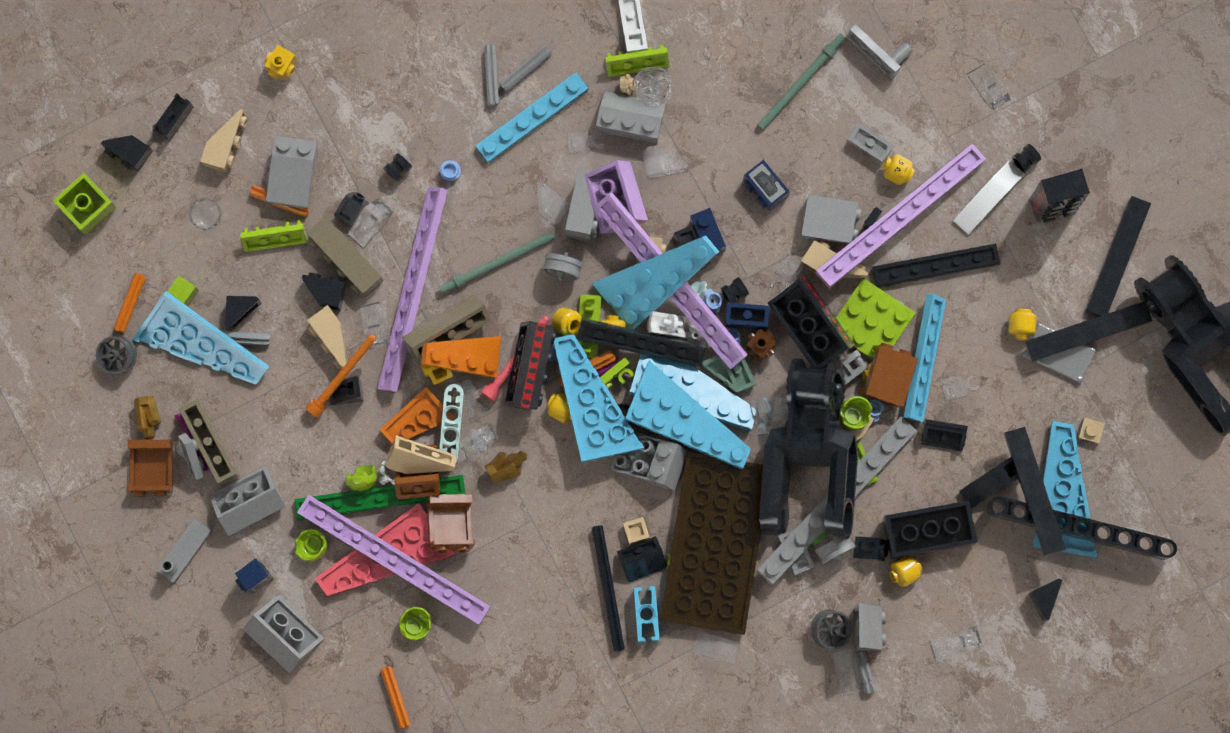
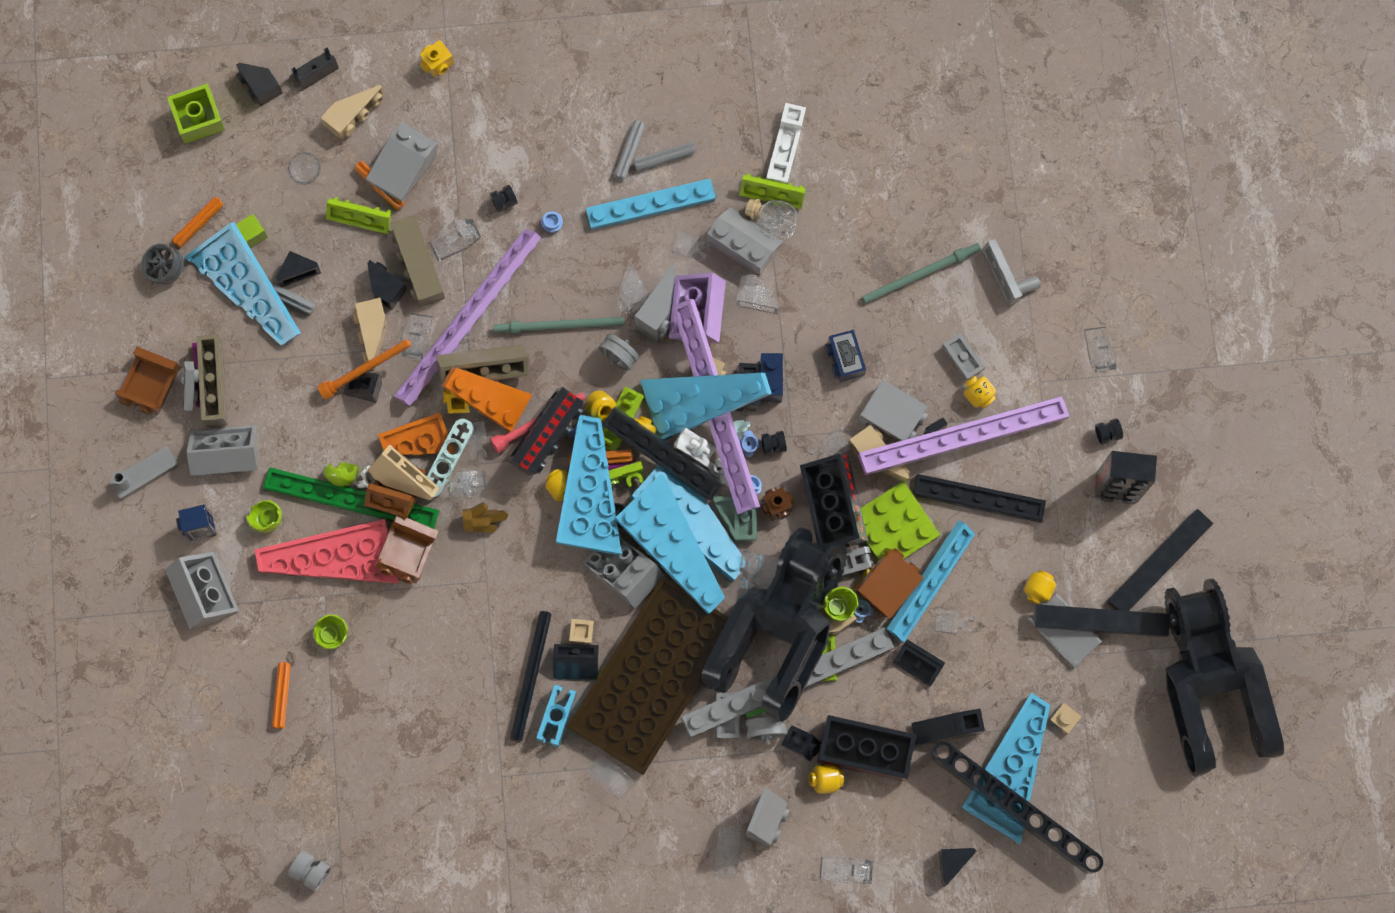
camera: 15 degrees right, 5 degrees down
(146, 415) = (165, 331): pearl gold rock -> none
(351, 208) = (442, 217): black bracket -> none
(394, 559) = (337, 562): lavender plate -> none
(747, 316) = (775, 470): dark blue brick -> none
(831, 629) = (729, 805): dark grey wheel -> none
(865, 673) = (745, 861): light grey axle -> none
(988, 197) = (1056, 453): white slope -> none
(1034, 491) = (984, 751): black tile -> none

